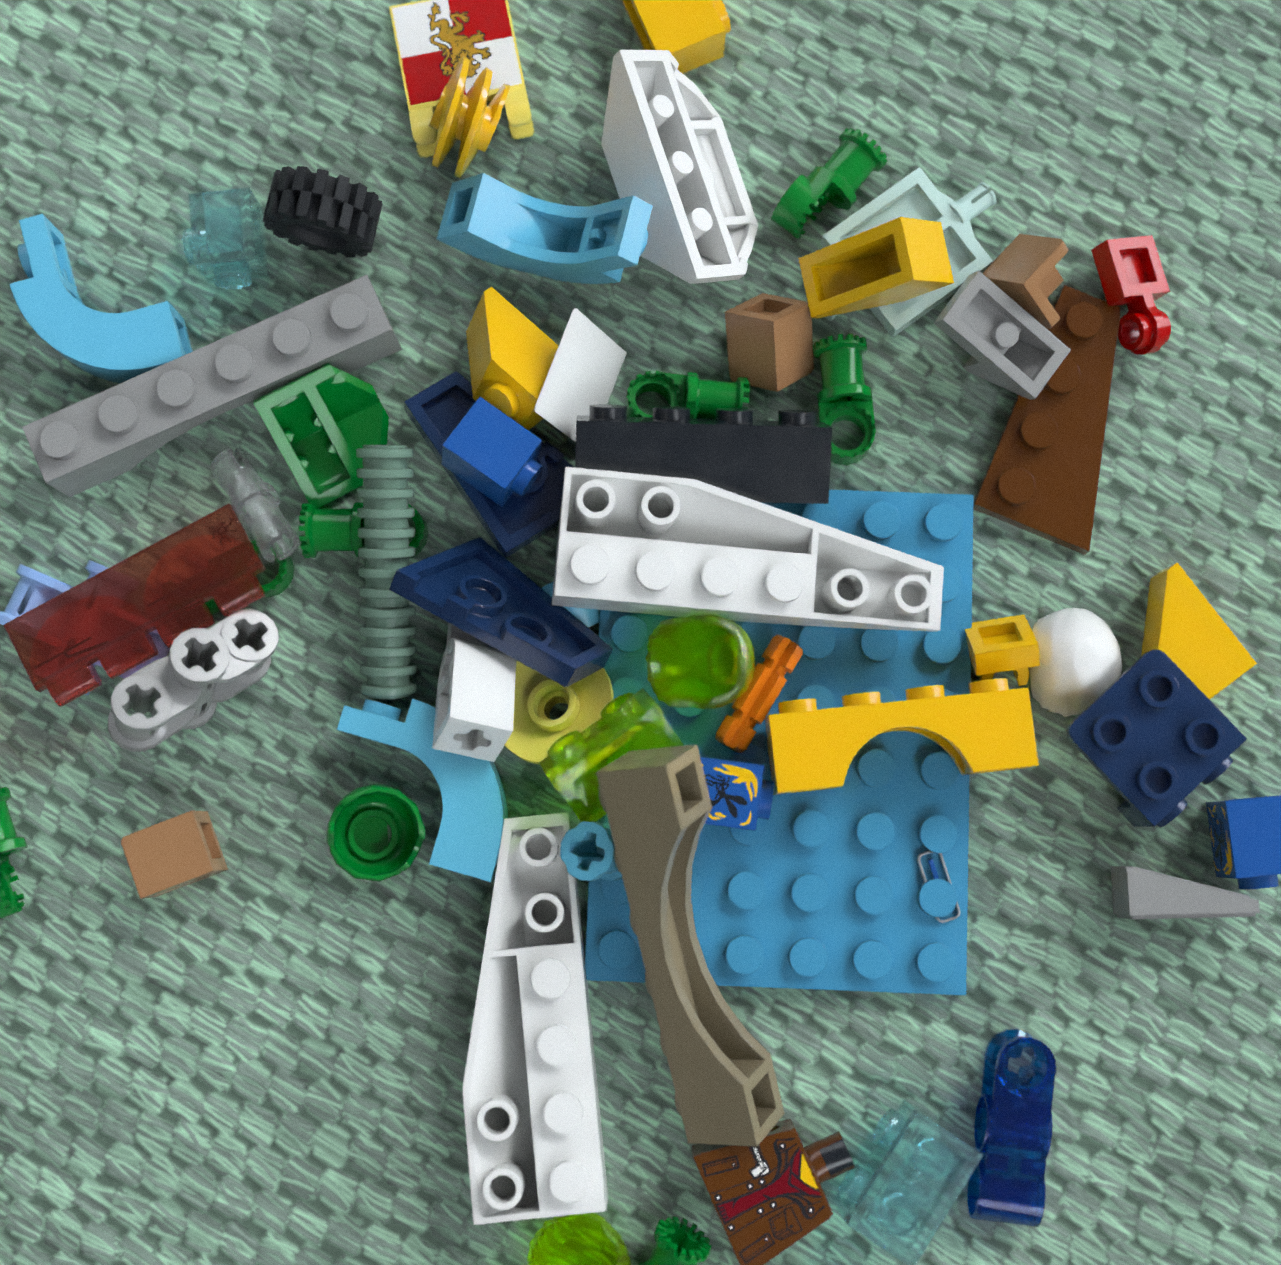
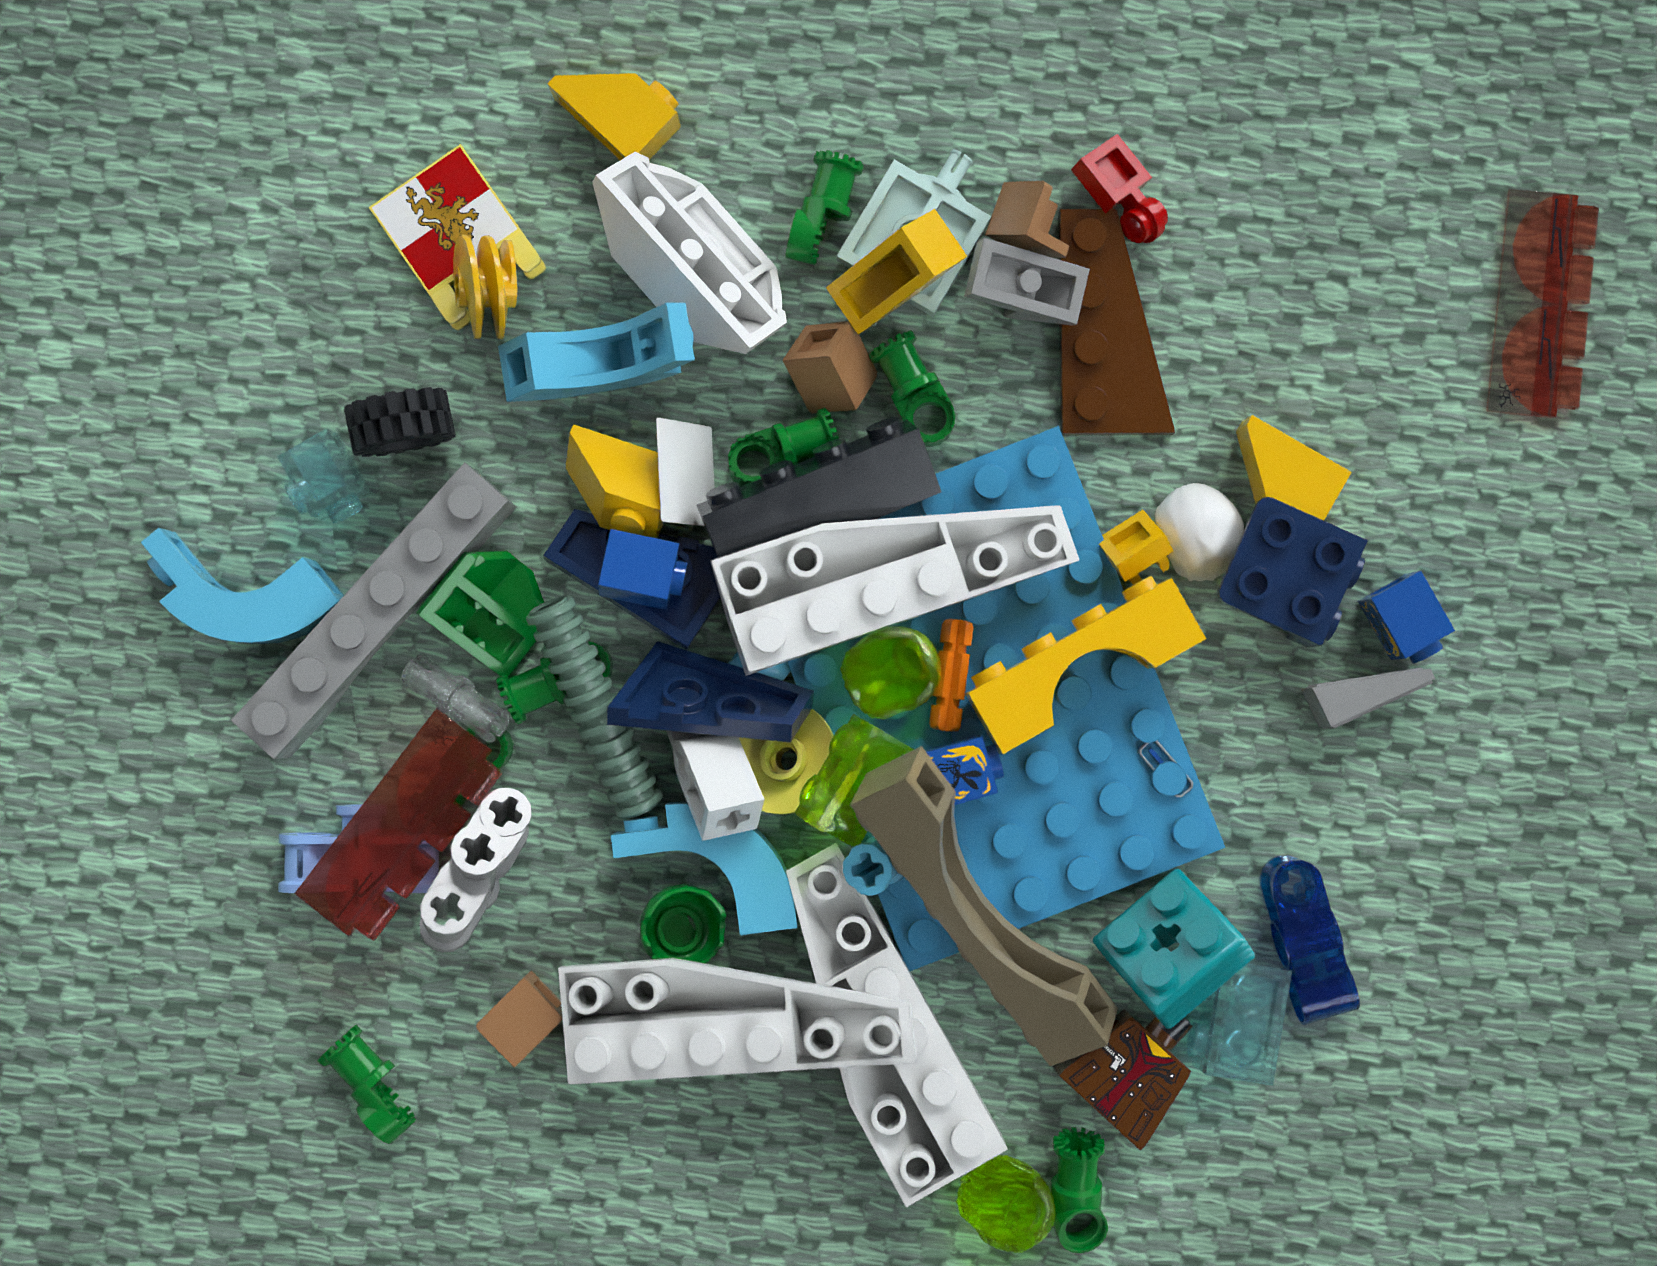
camera: 30 degrees left, 5 degrees up
(368, 942) = (719, 1021): none -> white wedge
(875, 1109) = (1181, 979): none -> teal brick

